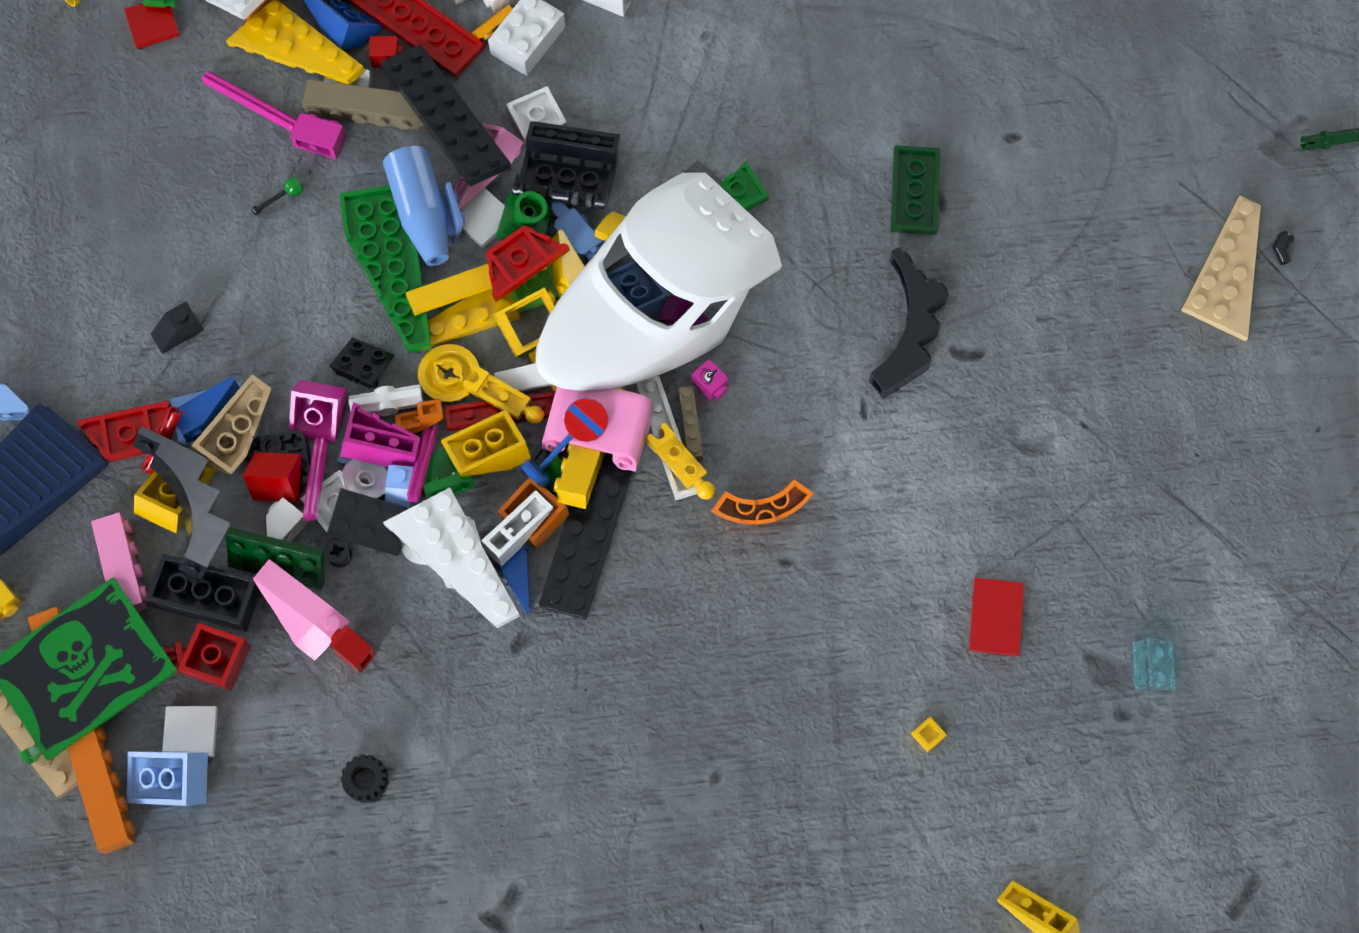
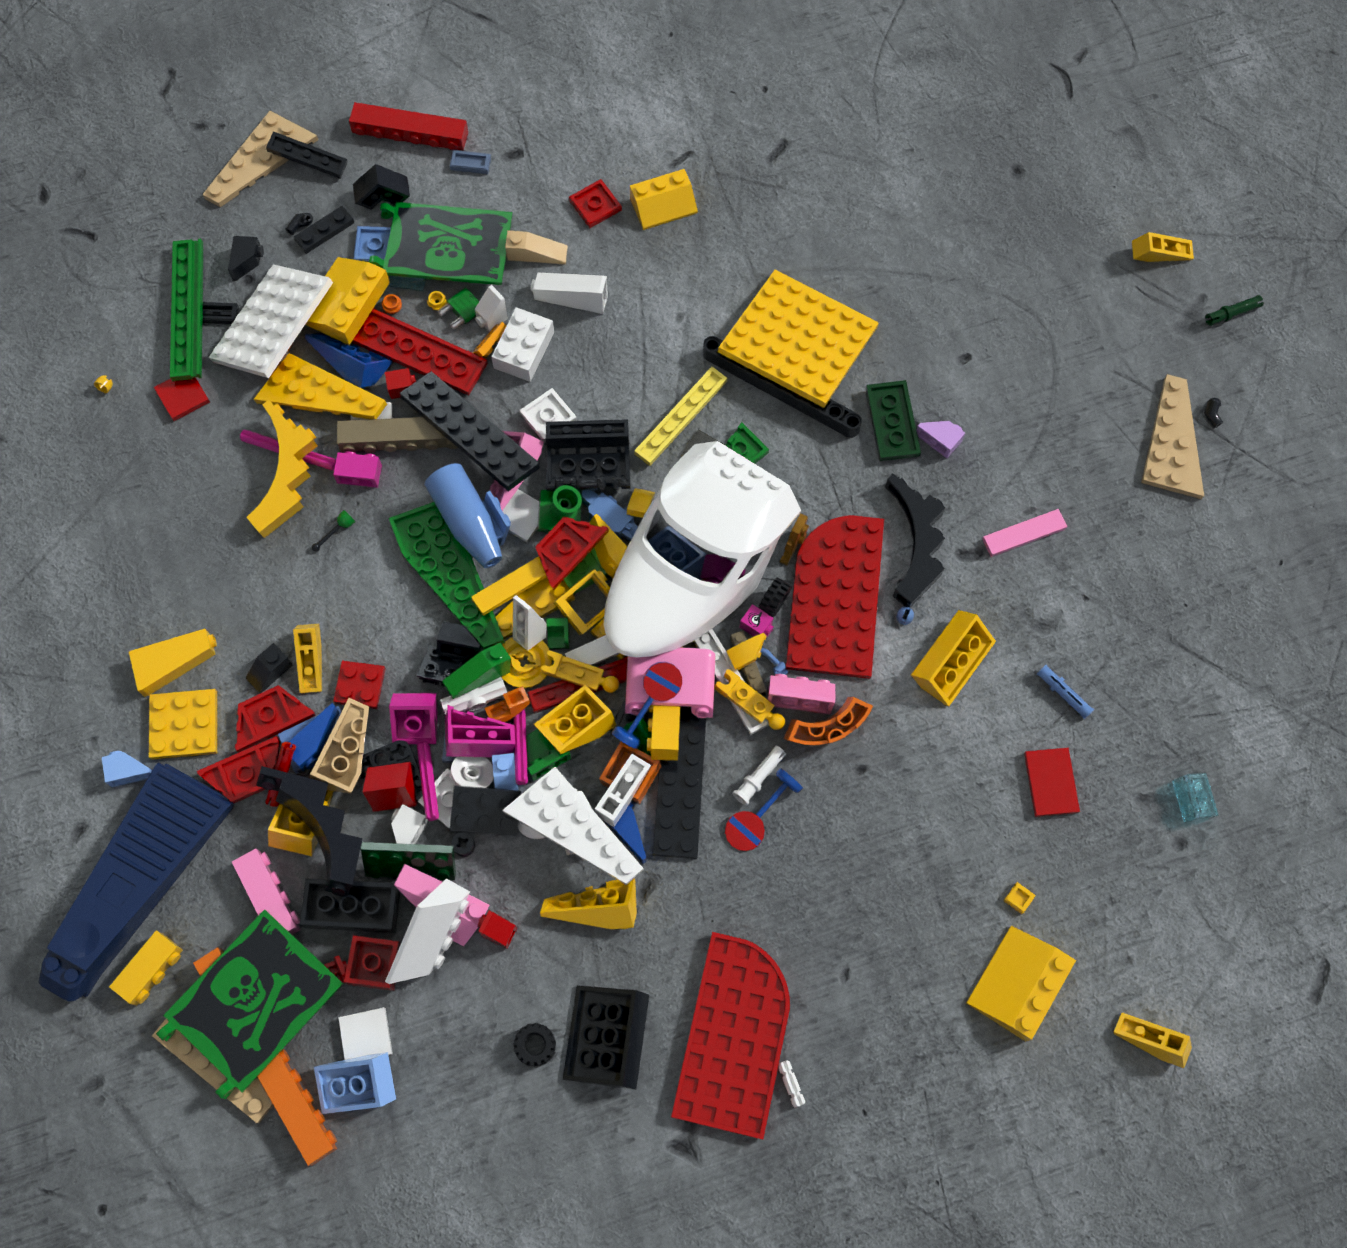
camera: 15 degrees left, 0 degrees up
(74, 369) = (182, 724): none -> yellow plate
(76, 298) = (169, 659): none -> yellow slope
(164, 378) = (268, 716): none -> red wing
(221, 324) = (308, 657): none -> yellow slope
(230, 152) = (282, 498): none -> yellow arch
(269, 362) = (359, 682): none -> red plate
(275, 635) = (429, 933): none -> white slope
(380, 338) = (456, 642): none -> black slope
(396, 372) = (478, 671): none -> green slope
(443, 786) = (606, 1036): none -> black slope
(459, 337) = (527, 624): none -> white slope
(474, 650) = (601, 907): none -> yellow wedge
(492, 350) = (558, 633): none -> green panel
(579, 818) = (734, 1039): none -> red plate
(629, 878) = (791, 1083): none -> white axle
(646, 599) = (745, 828): none -> piece
(665, 551) = (753, 782): none -> white pin
(681, 142) = (680, 416): none -> light yellow plate
(690, 408) = (746, 652): none -> yellow slope
(724, 435) = (779, 666): none -> medium blue piece
(736, 356) = (775, 597): none -> black tyre
(739, 466) = (801, 694): none -> bright pink slope
(775, 295) = (796, 537): none -> pearl gold wing
(804, 139) = (785, 395): none -> black beam
(805, 371) = (836, 598): none -> red plate
(831, 80) = (798, 338): none -> yellow plate
(881, 407) = (901, 612): none -> medium blue hinge
(906, 824) = (1021, 983): none -> yellow slope
(919, 460) = (954, 657): none -> yellow slope
(965, 216) = (941, 436): none -> lavender slope
(1033, 340) = (1024, 532): none -> bright pink tile
(1036, 523) = (1057, 684): none -> medium blue pin
(1268, 53) = (1158, 247): none -> yellow slope

